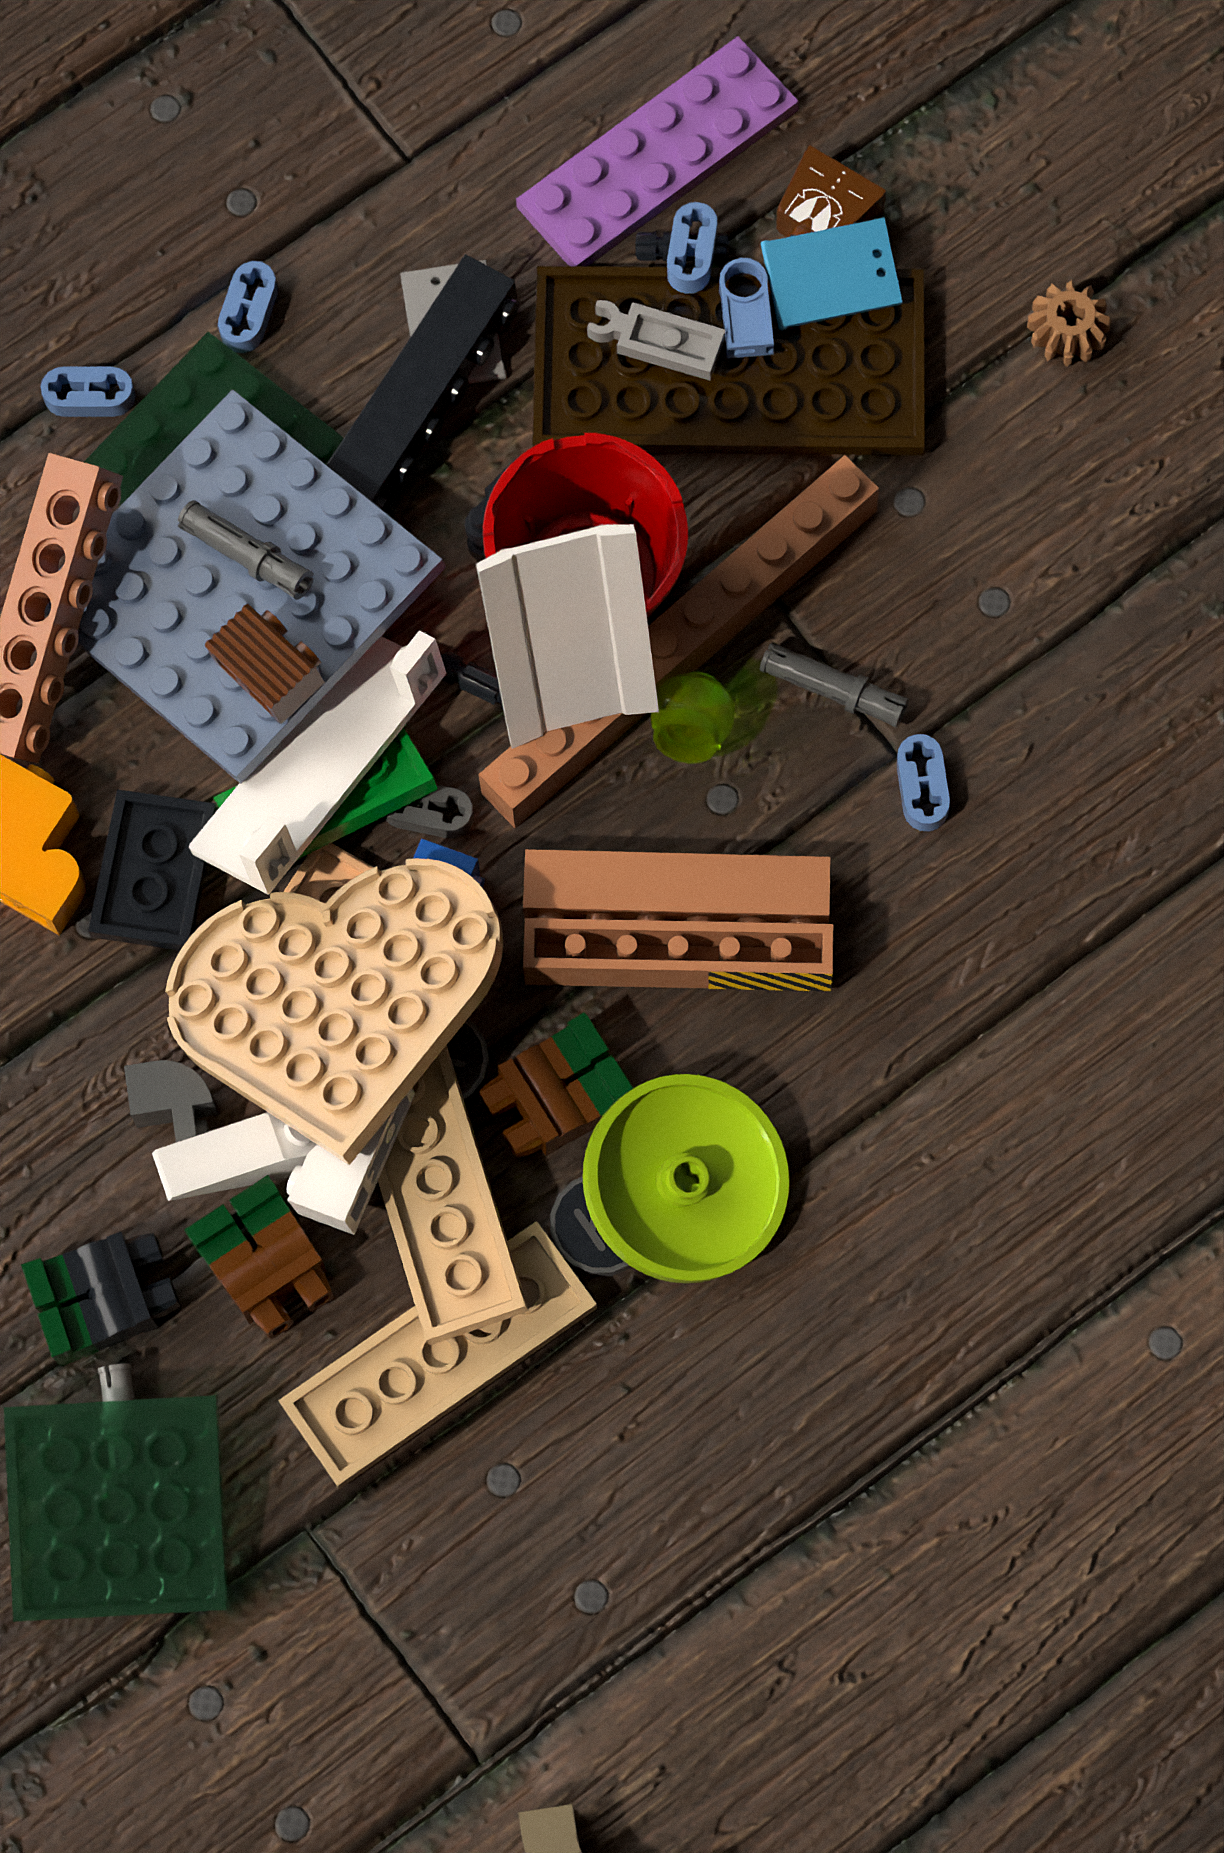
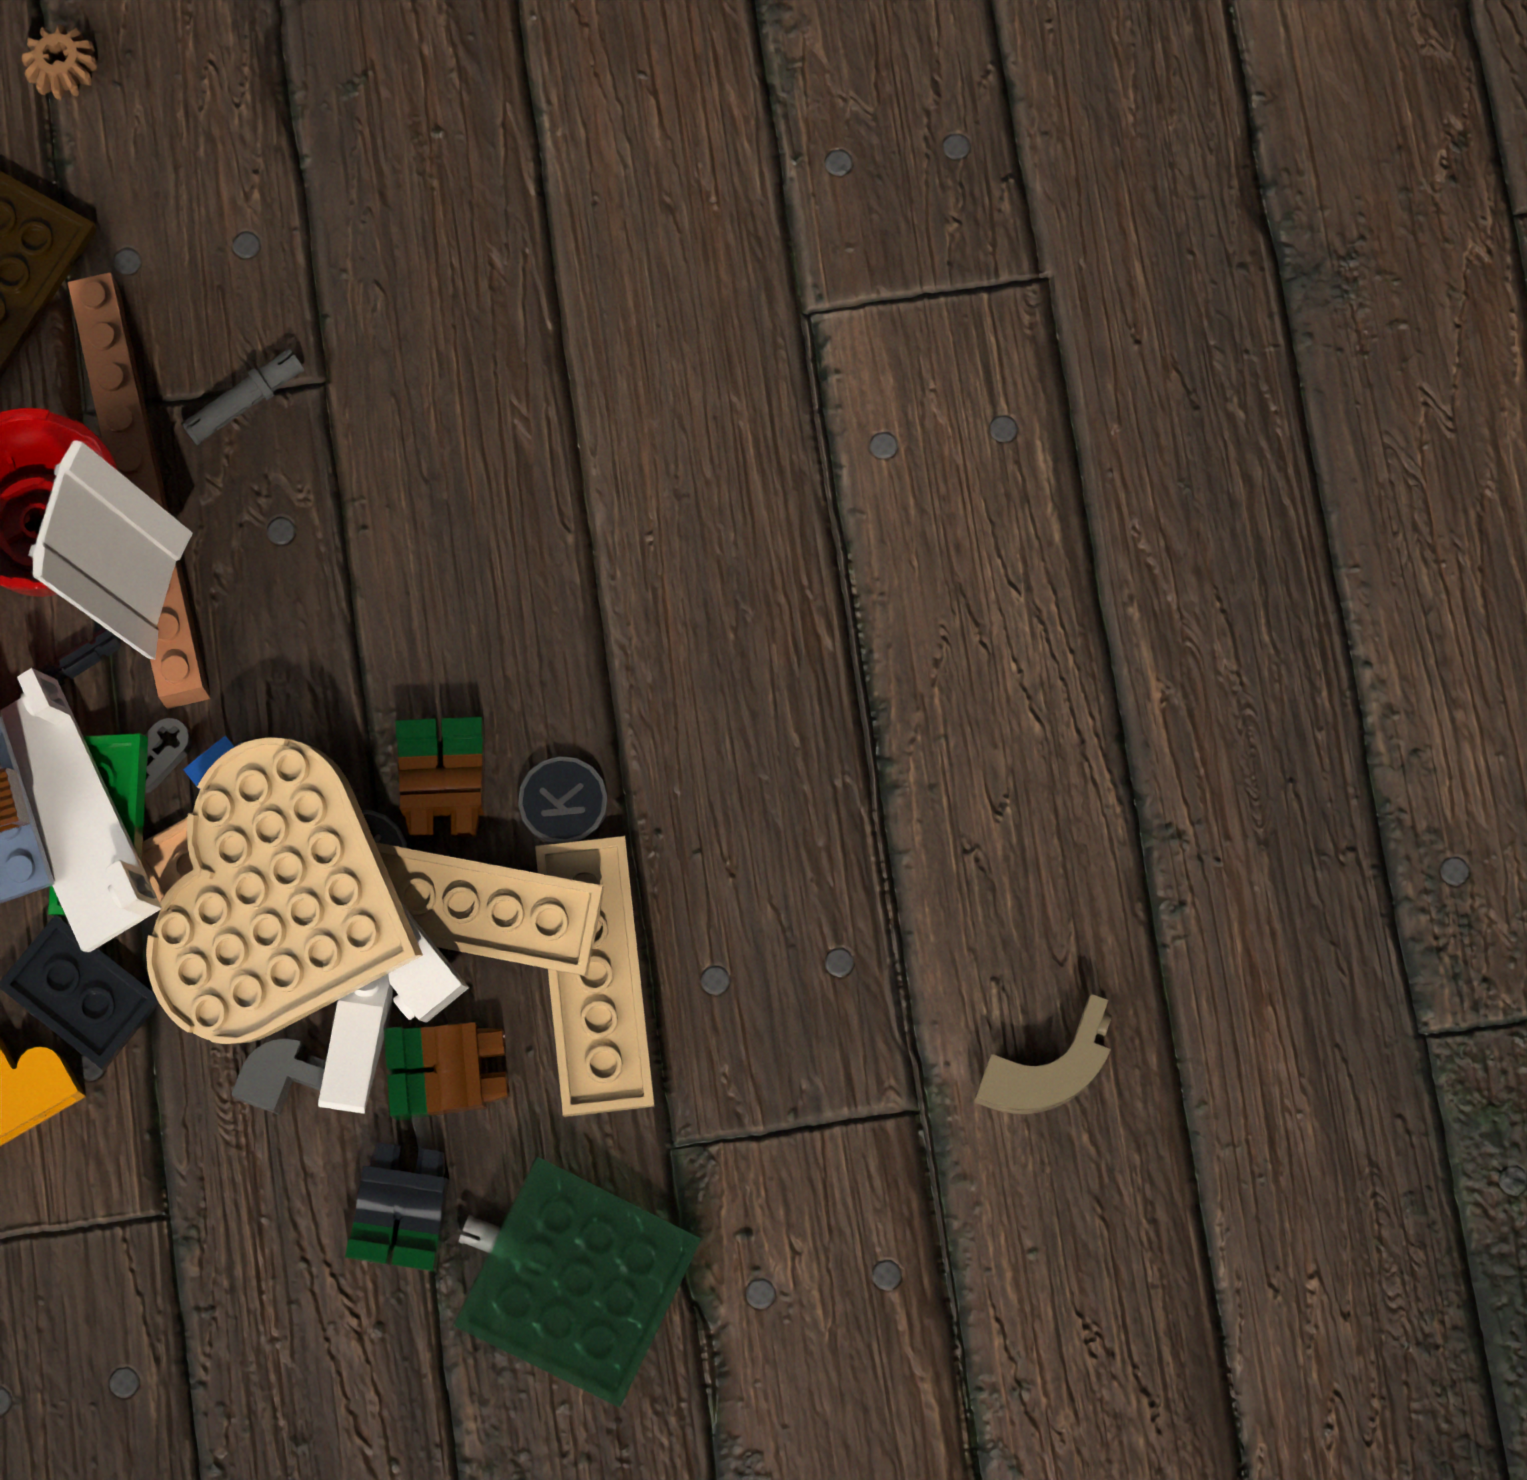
camera: 65 degrees left, 5 degrees up
(676, 887) = (337, 602): nougat brick -> none
(678, 954) = (390, 627): nougat brick -> none
(685, 1178) = (567, 716): lime dish -> none
(692, 717) = (210, 512): clear neon green piece -> none
(934, 781) = (363, 367): medium blue beam -> none

